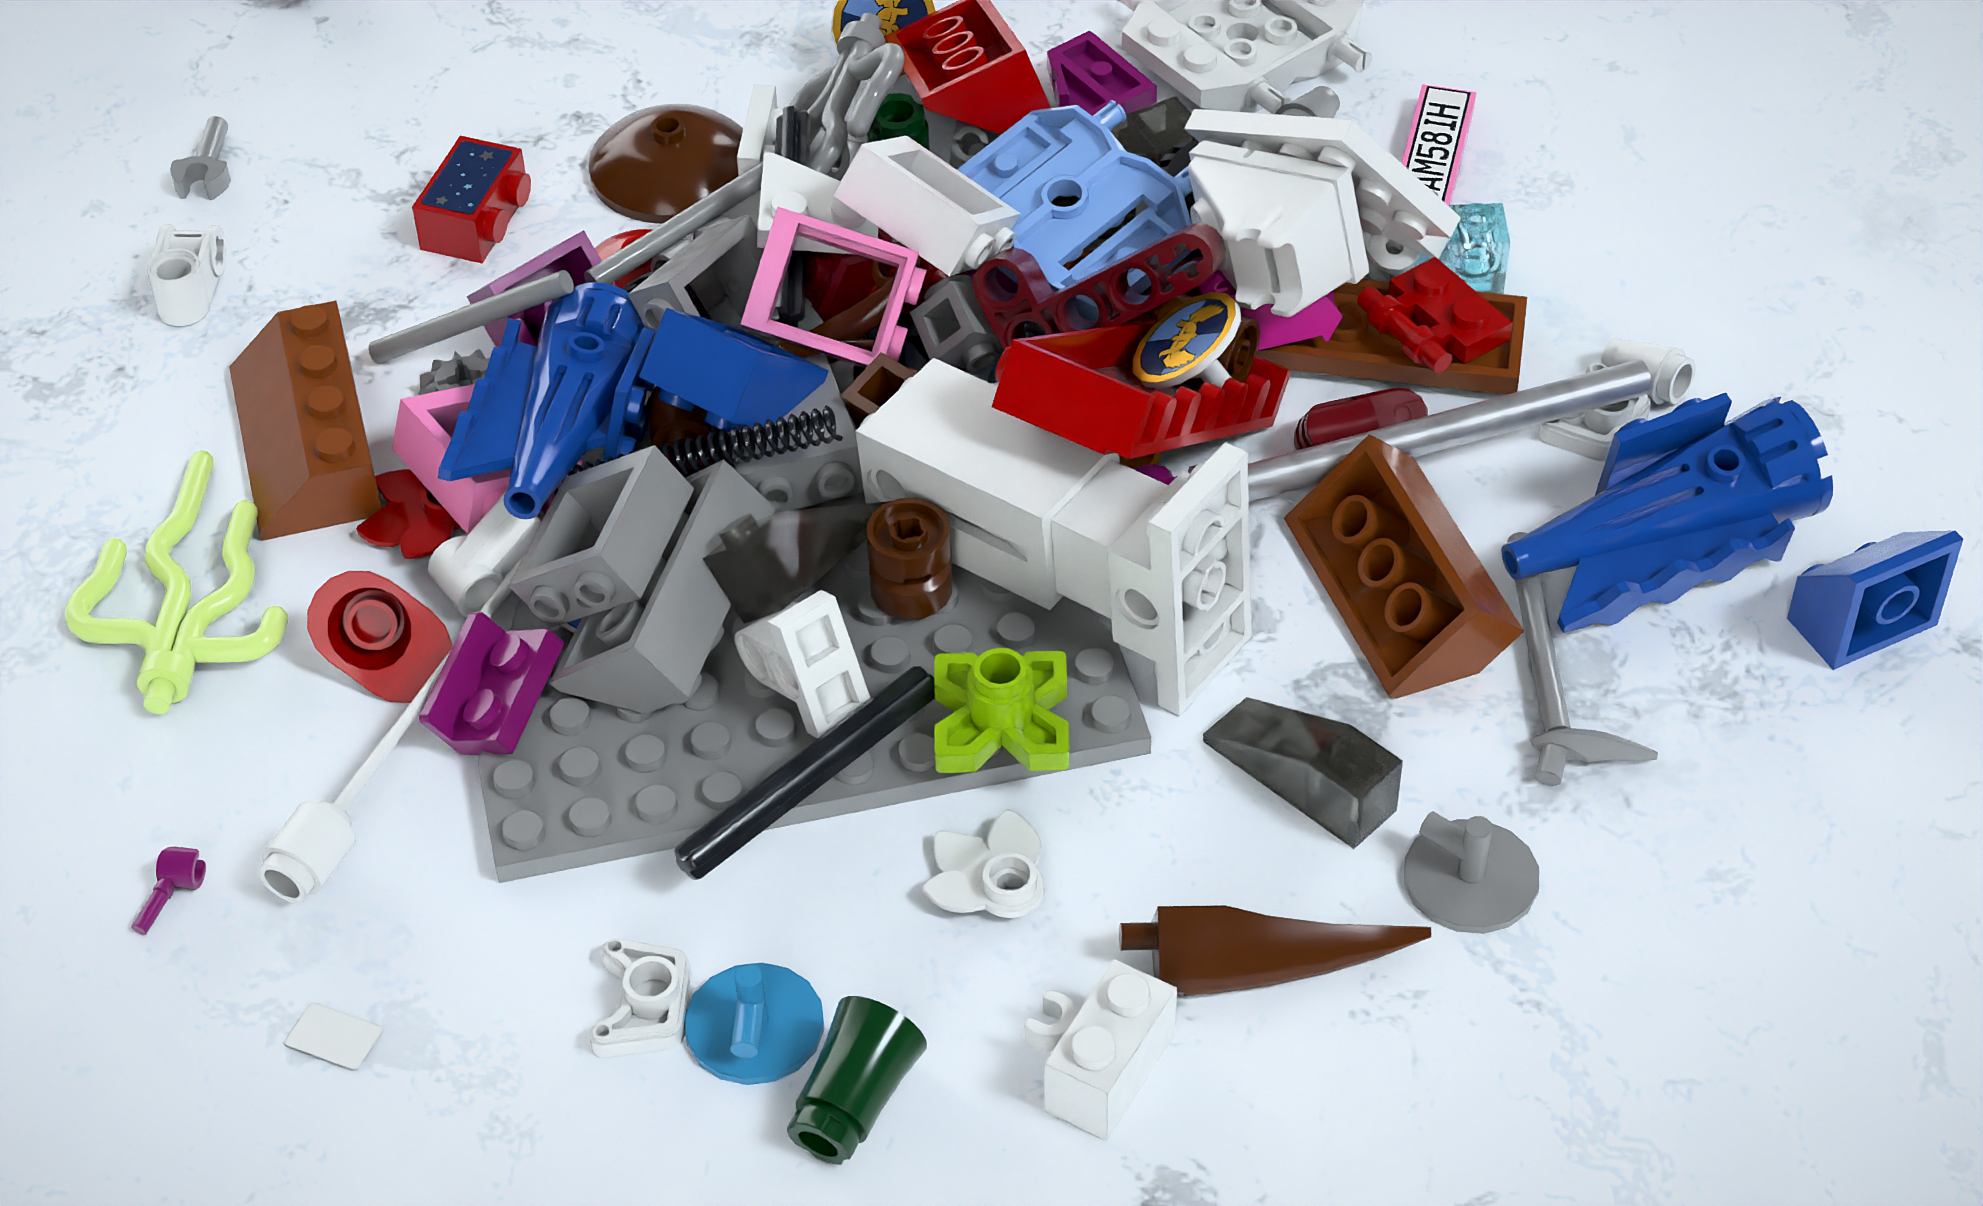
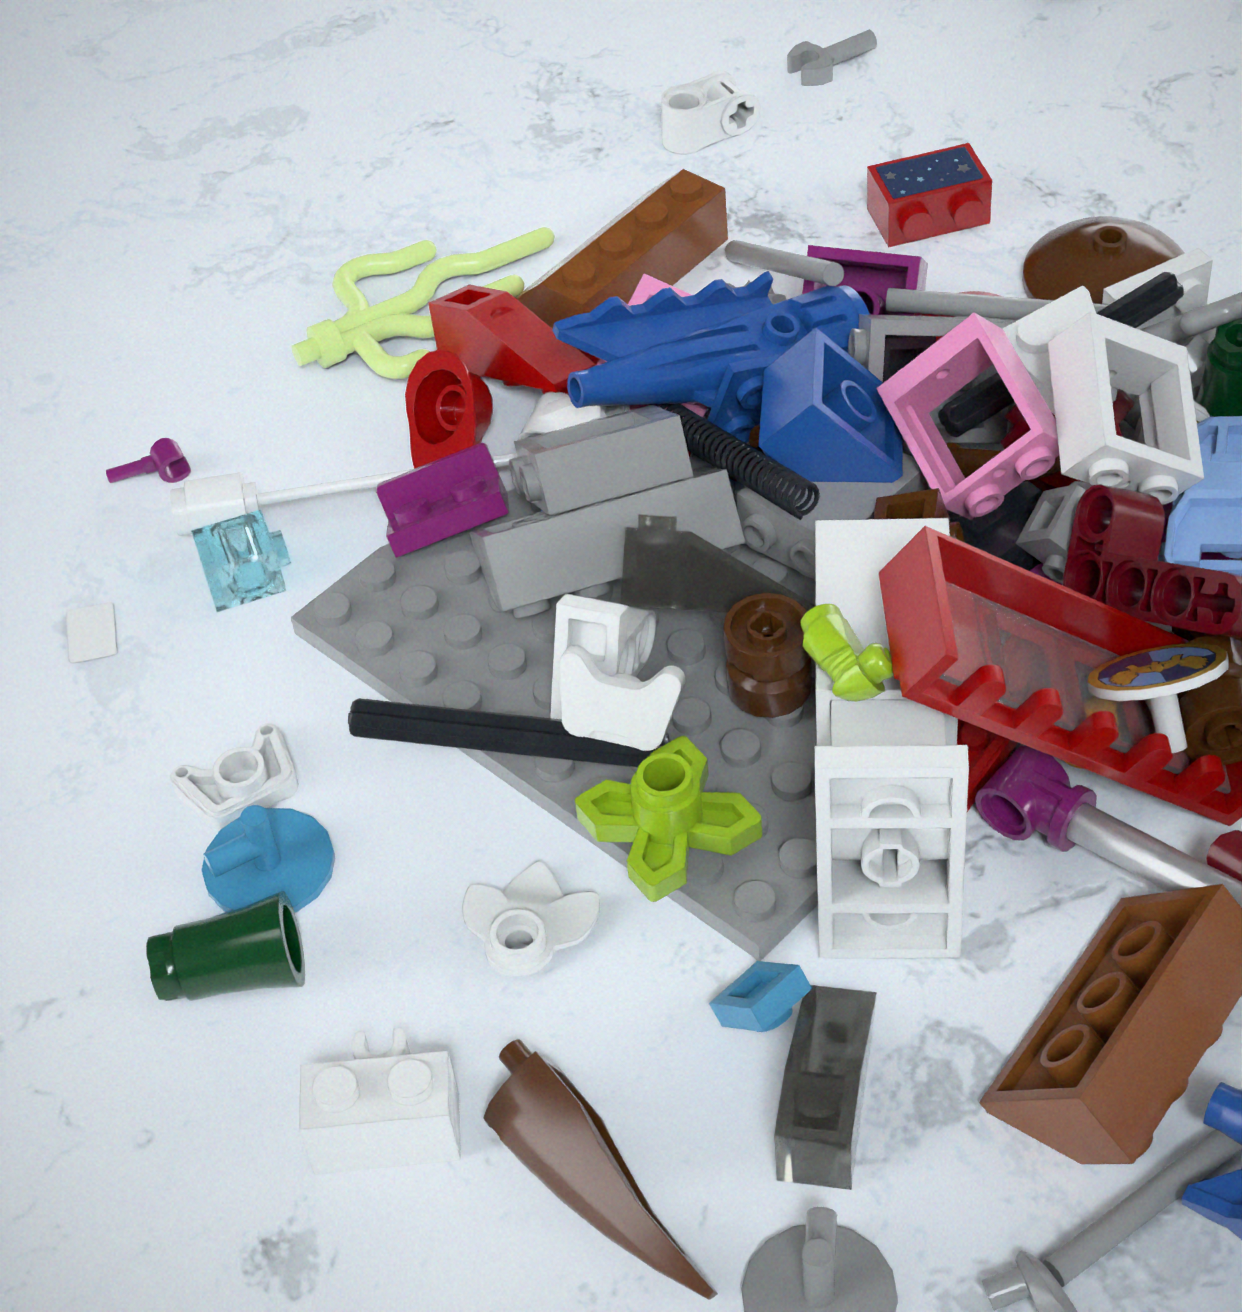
camera: 60 degrees right, 0 degrees up
(326, 537) = (503, 339): none -> red slope
(387, 869) = (241, 559): none -> clear light blue brick
(888, 669) = (617, 705): none -> white piece
(1035, 478) = (838, 651): none -> lime arm
(1202, 758) = (761, 997): none -> dark azure plate

